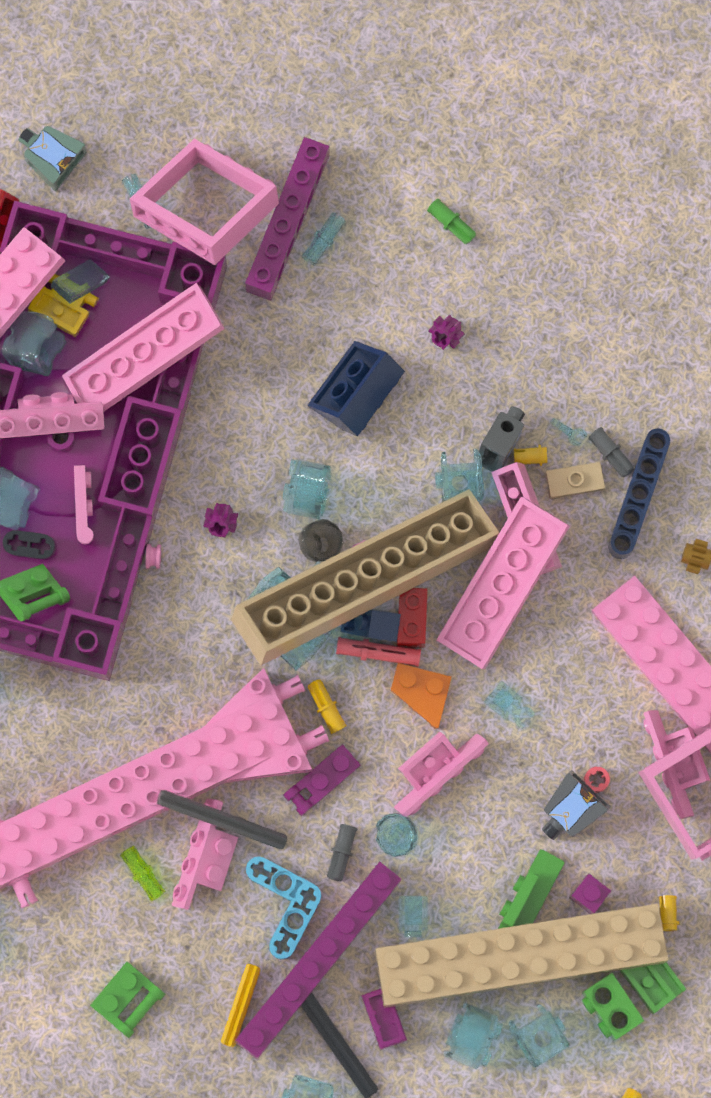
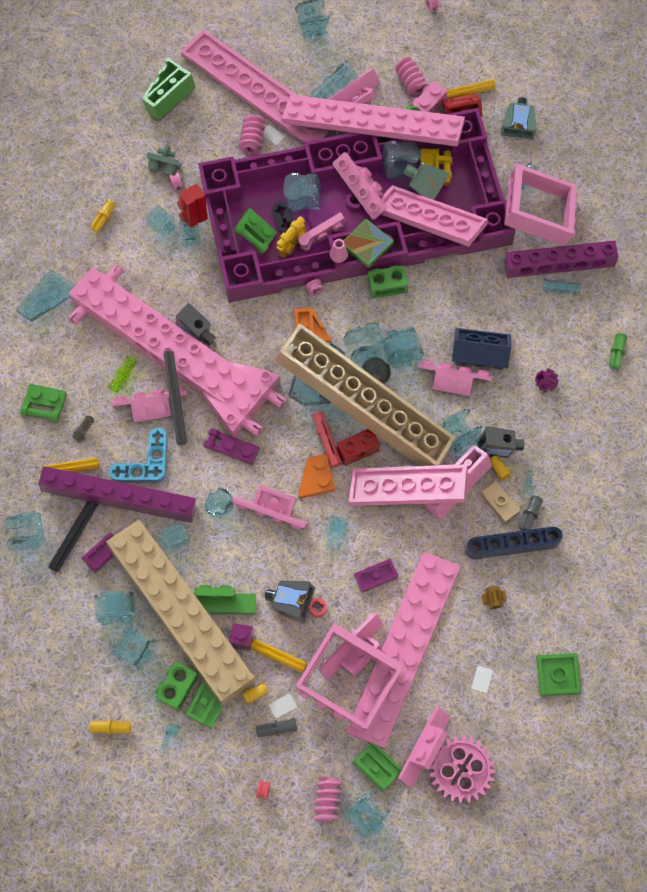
camera: 65 degrees right, 10 degrees down
(65, 538) = (290, 239): none -> yellow plate
(80, 281) = (456, 168): clear light blue tile -> none
(84, 327) = (426, 179): none -> sand green torso
(117, 748) = (194, 324): none -> dark grey torso
(138, 505) = (338, 251): none -> bright pink cone
(140, 455) = (367, 243): none -> tile
(194, 964) = (82, 429): none -> clear smoke arm
(204, 458) = (389, 286): none -> bright green brick
(209, 593) = (309, 319): none -> orange wing
(220, 520) = (356, 312): magenta gear -> none
(274, 515) = (369, 331): none -> clear light blue piece
(326, 706) = (277, 426): yellow axle -> none
(341, 852) = (192, 478): dark grey axle -> none
(374, 624) = (340, 424): dark blue slope -> none
(379, 446) = (454, 379): none -> bright pink bracket
(593, 685) = (376, 575): none -> magenta plate
(635, 859) = (278, 655): none -> yellow axle
(662, 1040) = (171, 729): none -> clear light blue hand
(698, 887) = (282, 706): none -> white sticker

